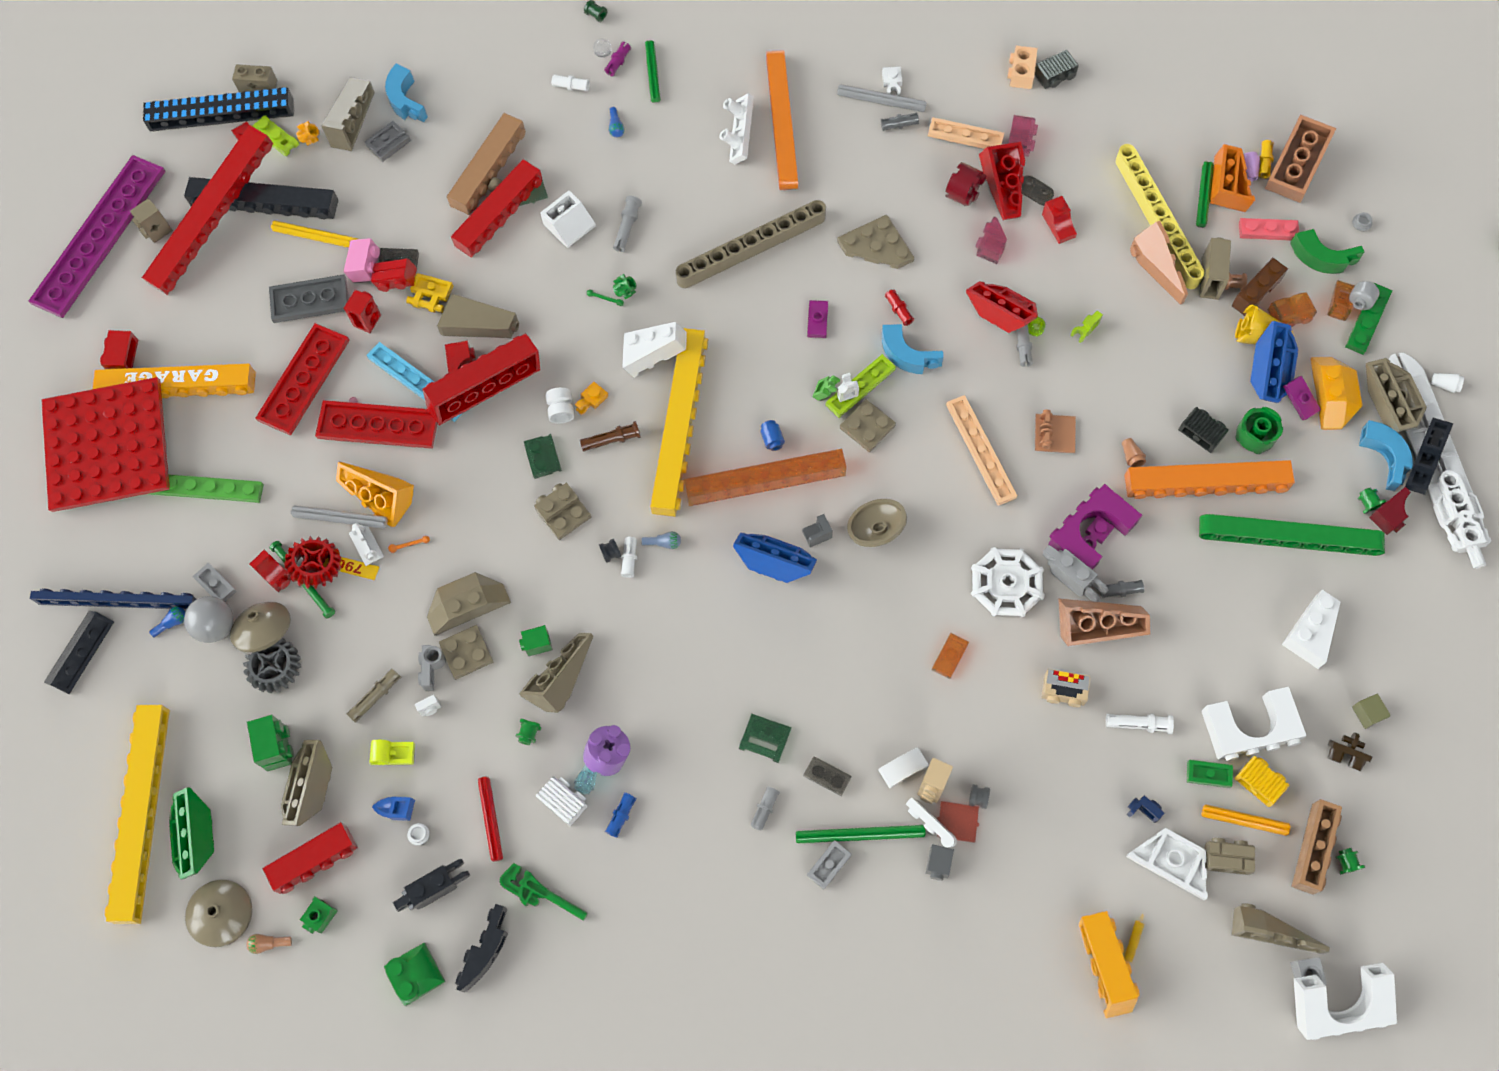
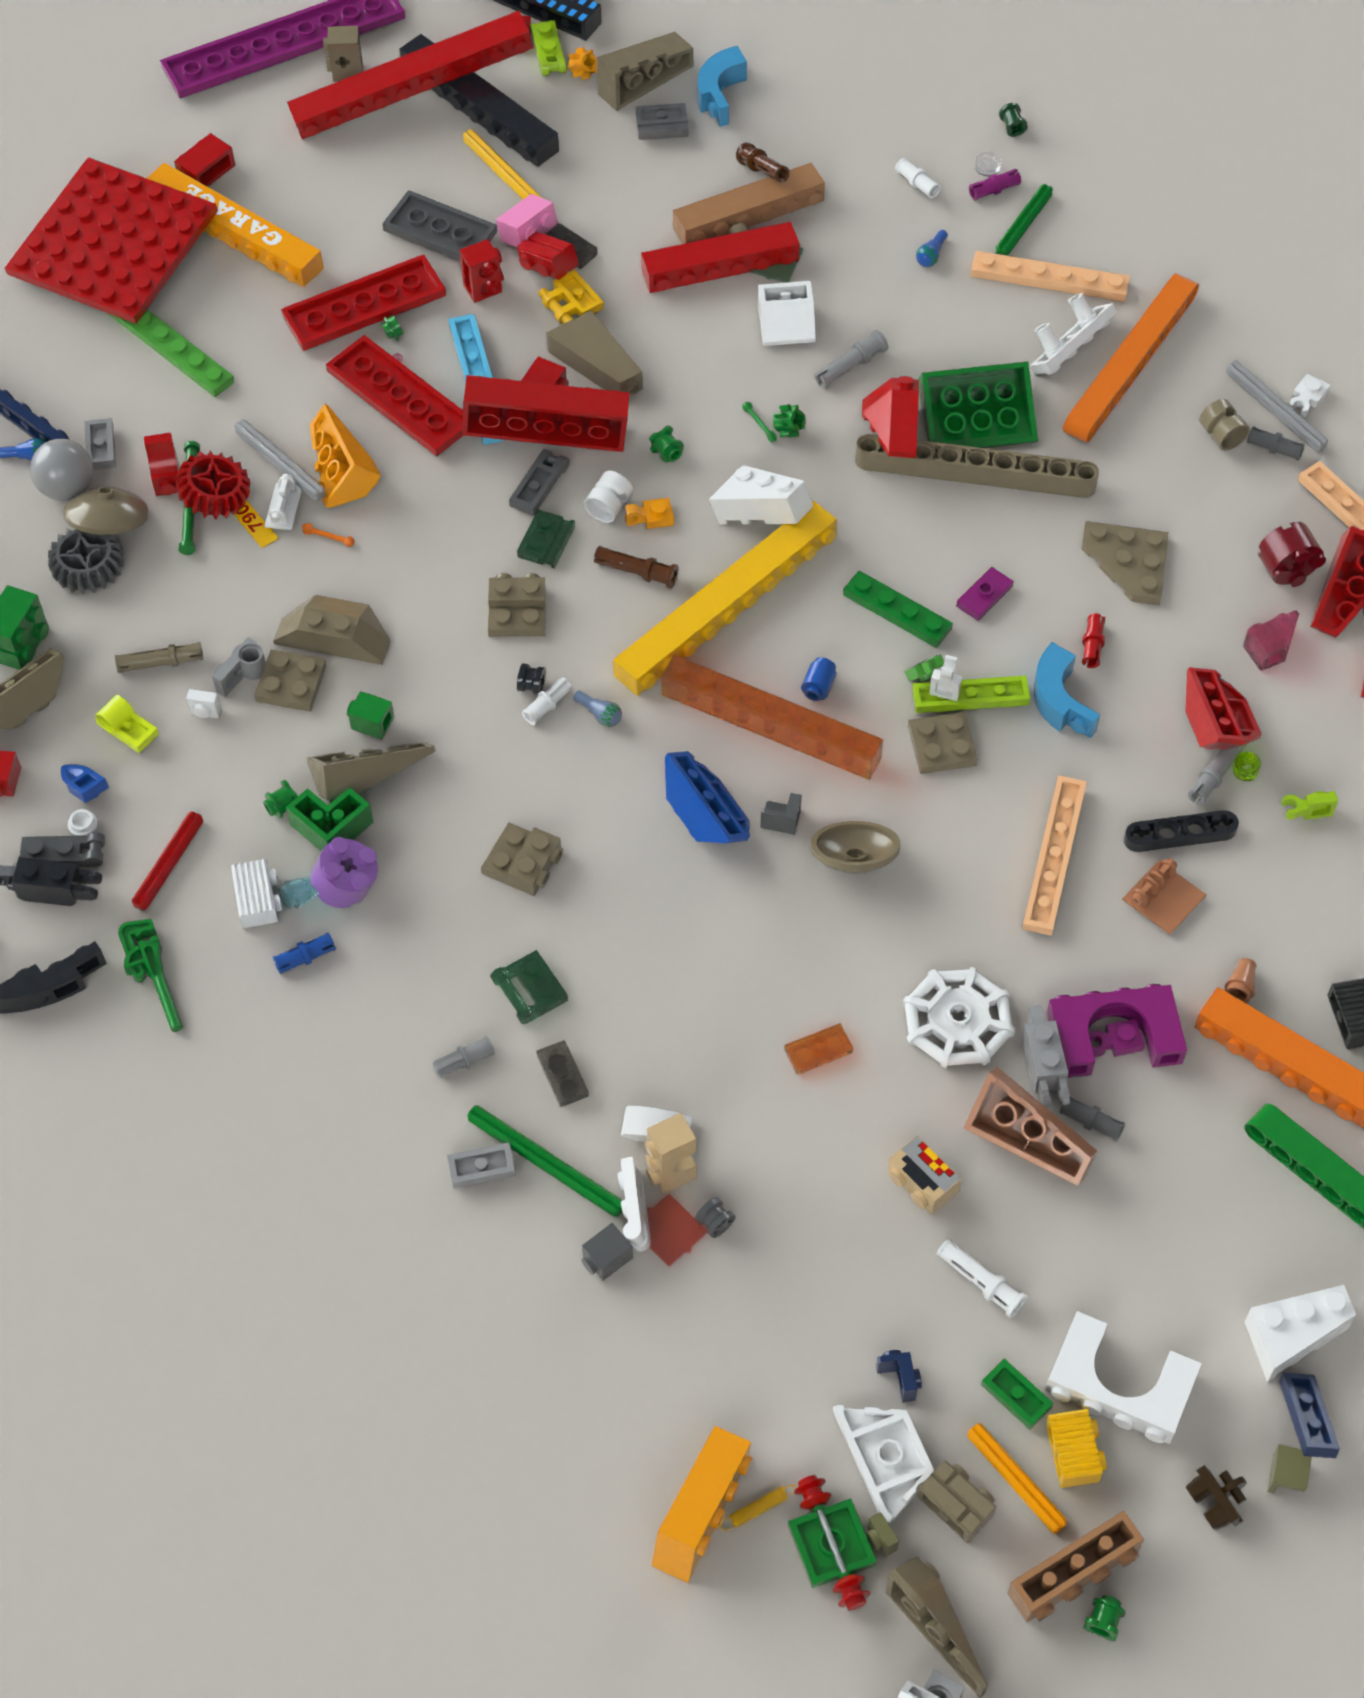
camera: 35 degrees right, 10 degrees down
(335, 383) = (392, 327): none -> green plate
(420, 860) = (65, 848): none -> dark grey plate
(470, 131) = (757, 161): none -> reddish brown pin
(509, 423) = (538, 482): none -> dark grey plate
(565, 349) = (666, 445): none -> green brick
(571, 728) = (322, 823): none -> green brick
(684, 243) = (894, 415): none -> red wedge
(694, 97) = (1050, 276): none -> light nougat plate
(696, 663) = (523, 858): none -> dark tan plate
(723, 207) = (979, 405): none -> green slope
(777, 361) = (897, 609): none -> green plate
(865, 128) = (1224, 424): none -> dark tan wheel
(1034, 389) = (1179, 826): none -> black beam
(1187, 931) = (831, 1543): none -> green plate
(1209, 907) = (881, 1535): none -> olive plate
(1359, 674) = (1309, 1415): none -> dark blue plate

